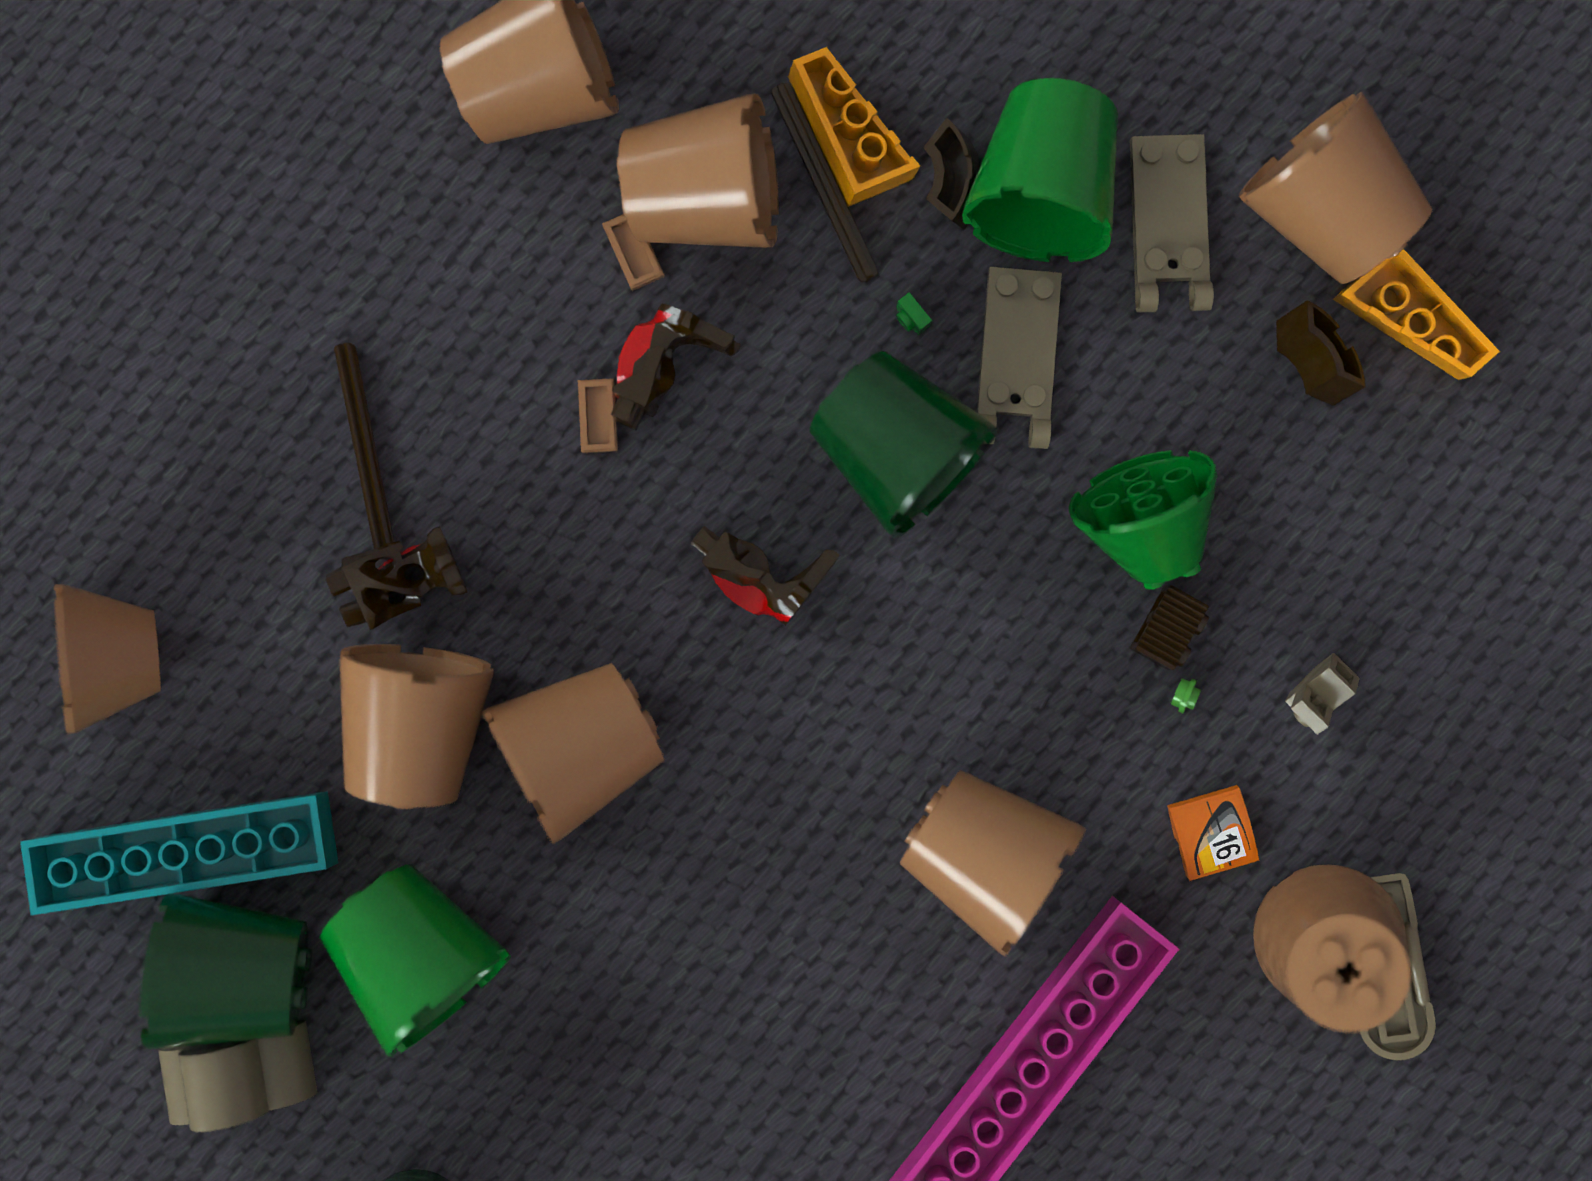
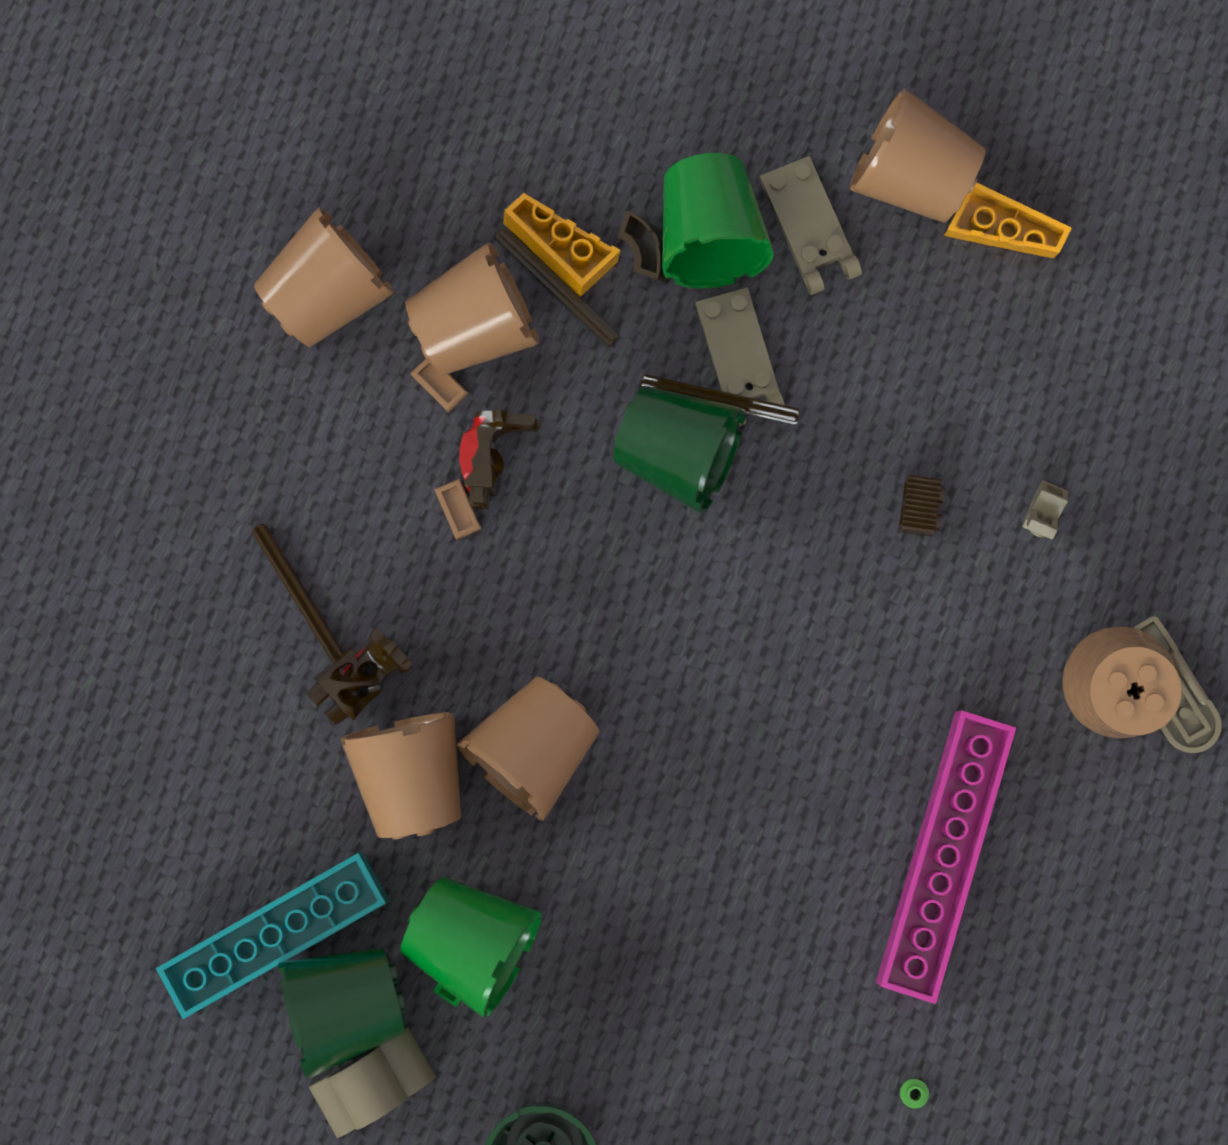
camera: 20 degrees left, 5 degrees down
(103, 655) = (168, 810): medium nougat cone -> none
(746, 578) = (609, 583): dark brown hips -> none
(912, 315) = (654, 355): green plate -> none
(989, 856) = (855, 711): medium nougat cone -> none
(1004, 422) = (751, 405): none -> dark brown axle
(1150, 514) = (875, 430): green cone -> none
(1186, 695) = (950, 549): bright green plate -> none
(1213, 832) = (1008, 639): orange slope -> none
(1319, 354) = (950, 277): dark brown brick -> none

